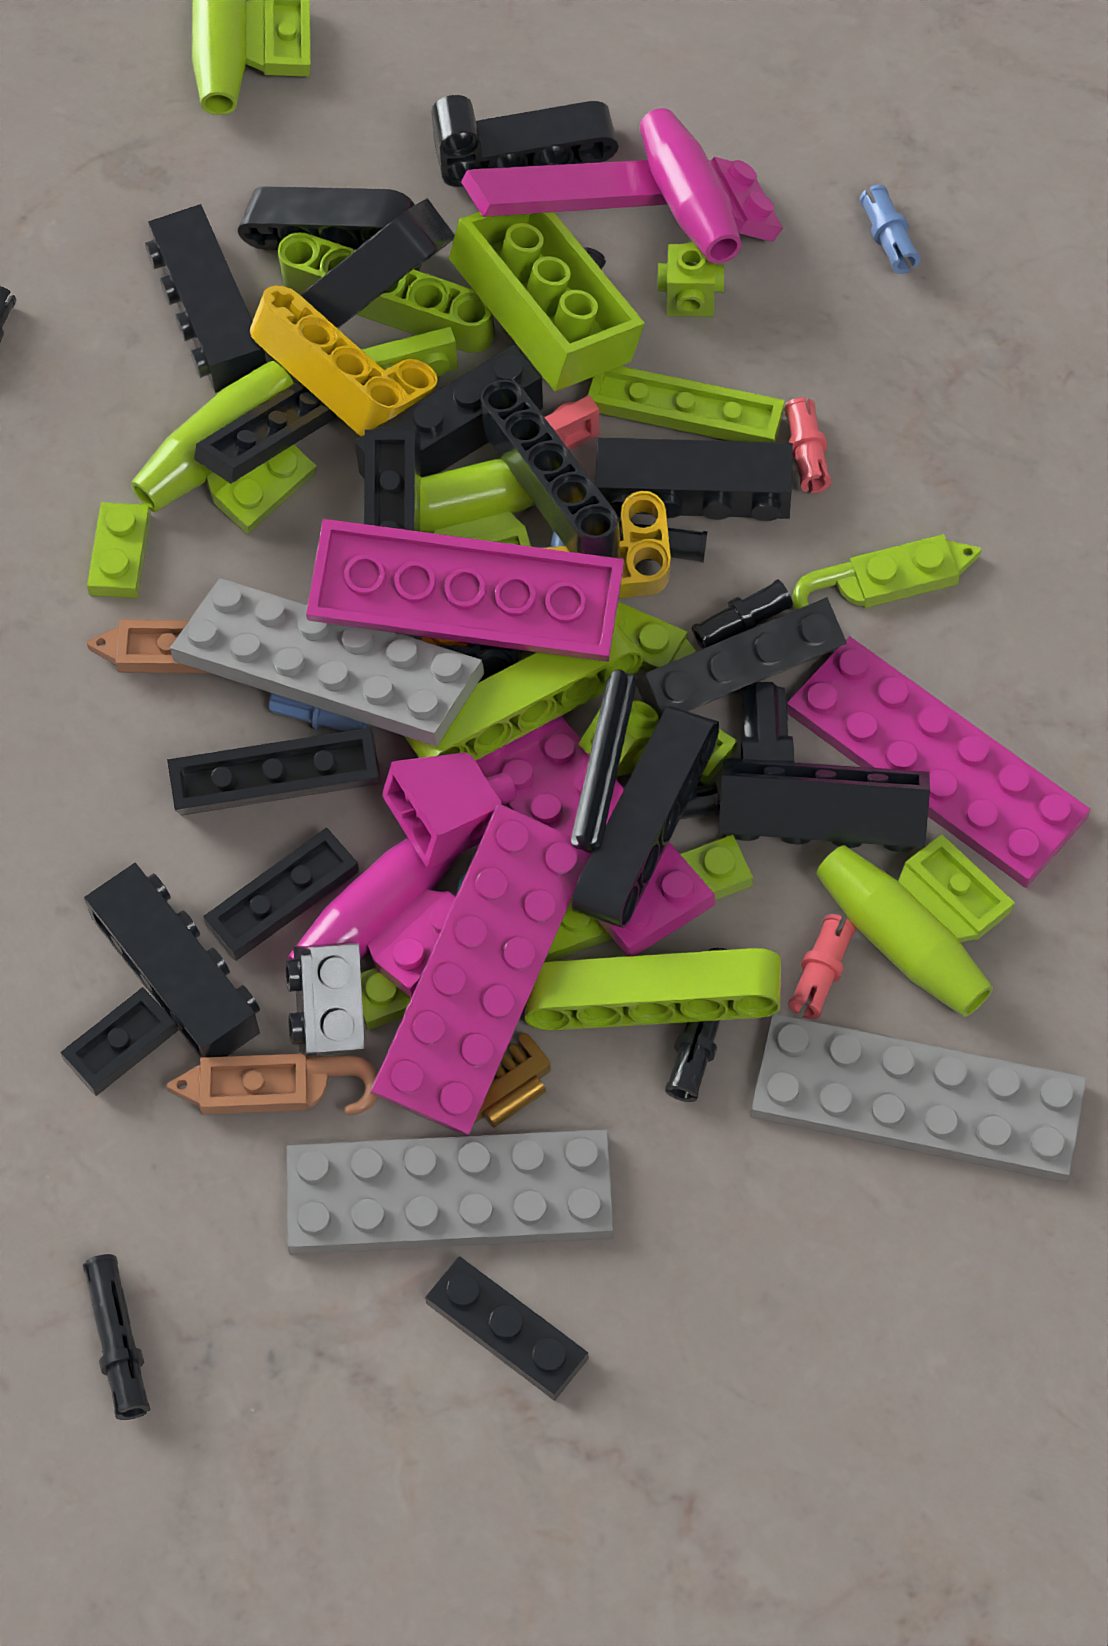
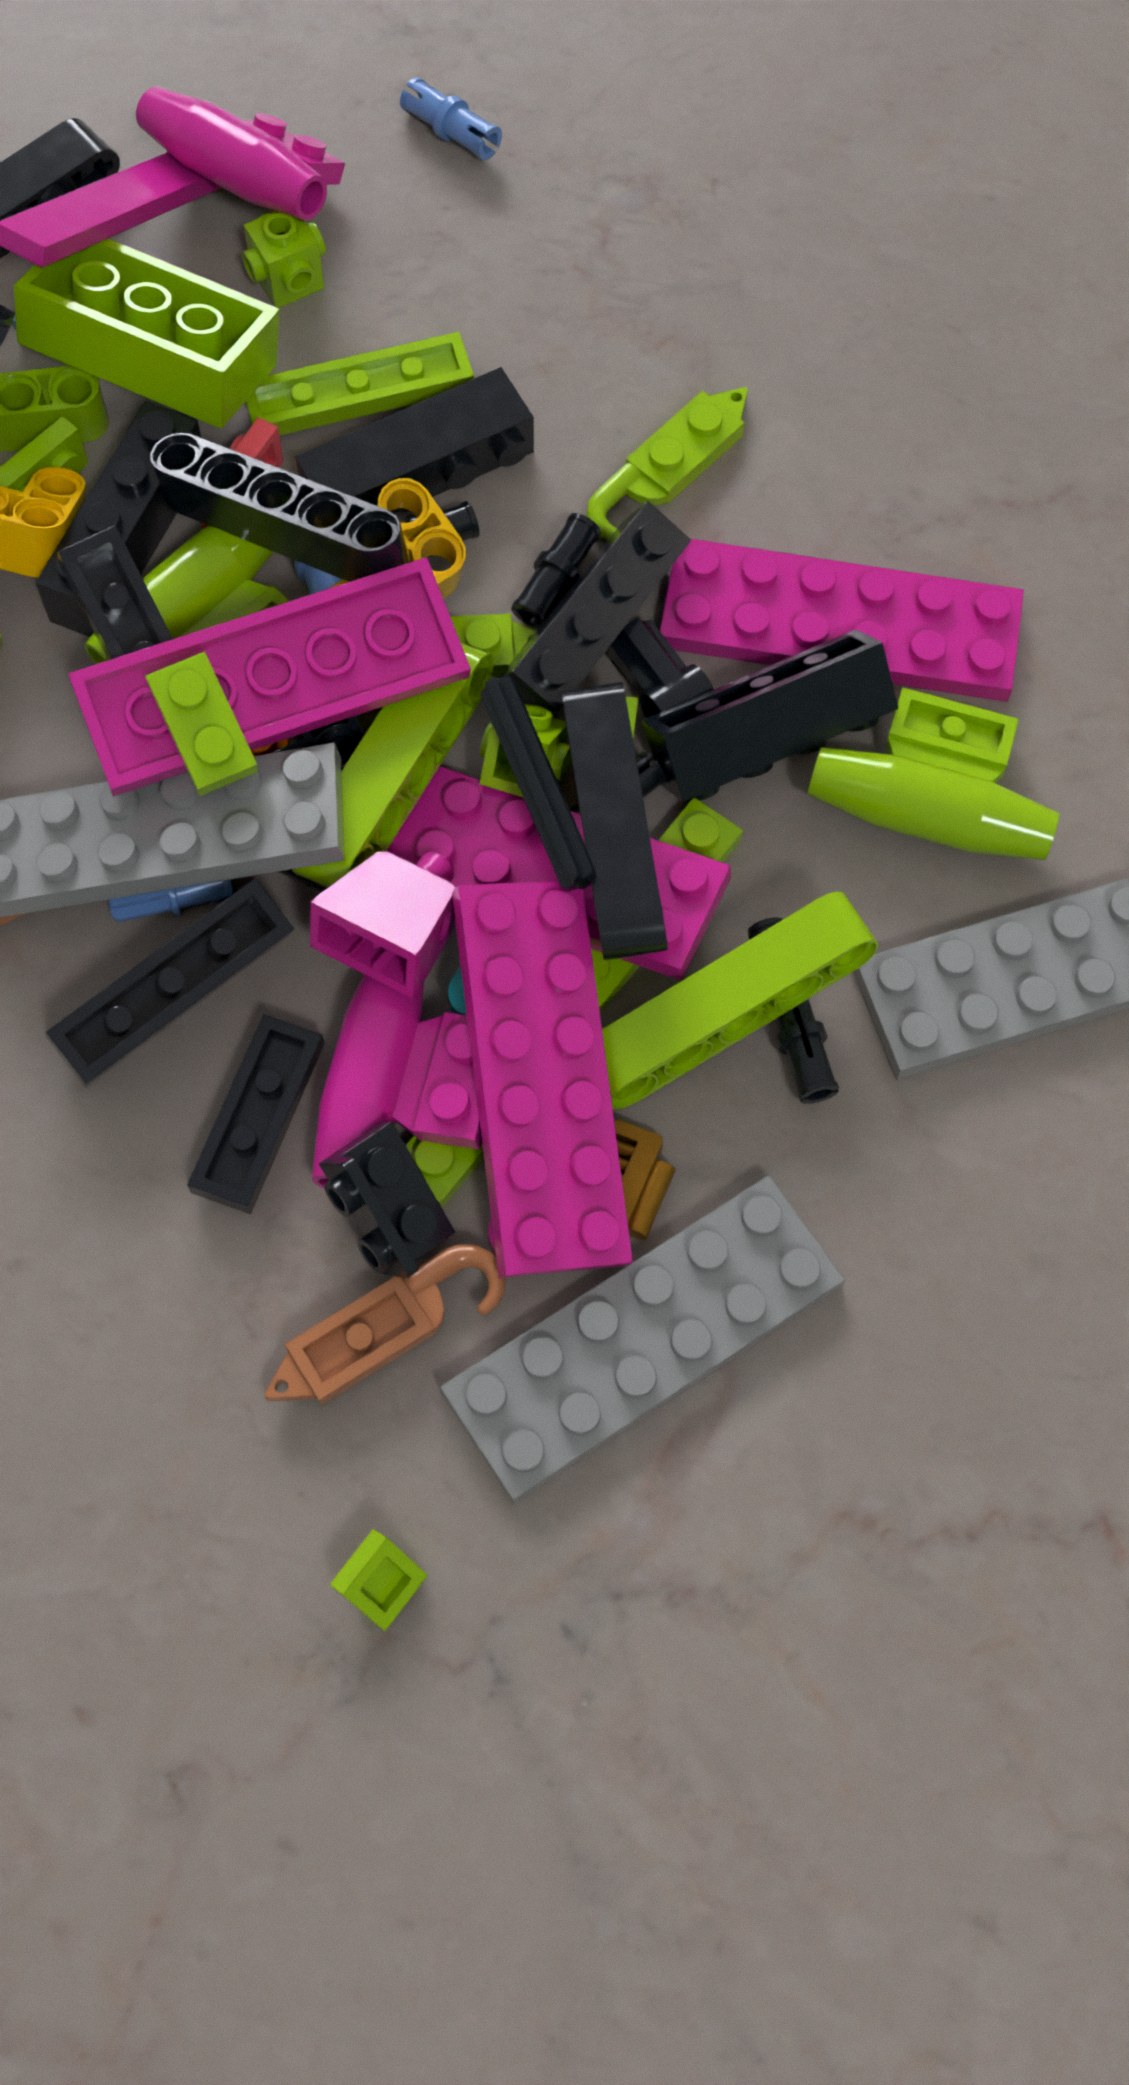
camera: 35 degrees left, 5 degrees up
(119, 1041) = (177, 1377): black plate -> none
(120, 1356) = (397, 1726): black pin -> none
(165, 1246) = (378, 1579): none -> lime plate
(173, 963) = (184, 1255): black brick -> none
(392, 600) = (201, 723): none -> lime plate
(507, 1328) = (801, 1449): black plate -> none
(808, 445) = (496, 352): coral pin -> none
(822, 966) = (872, 882): coral pin -> none

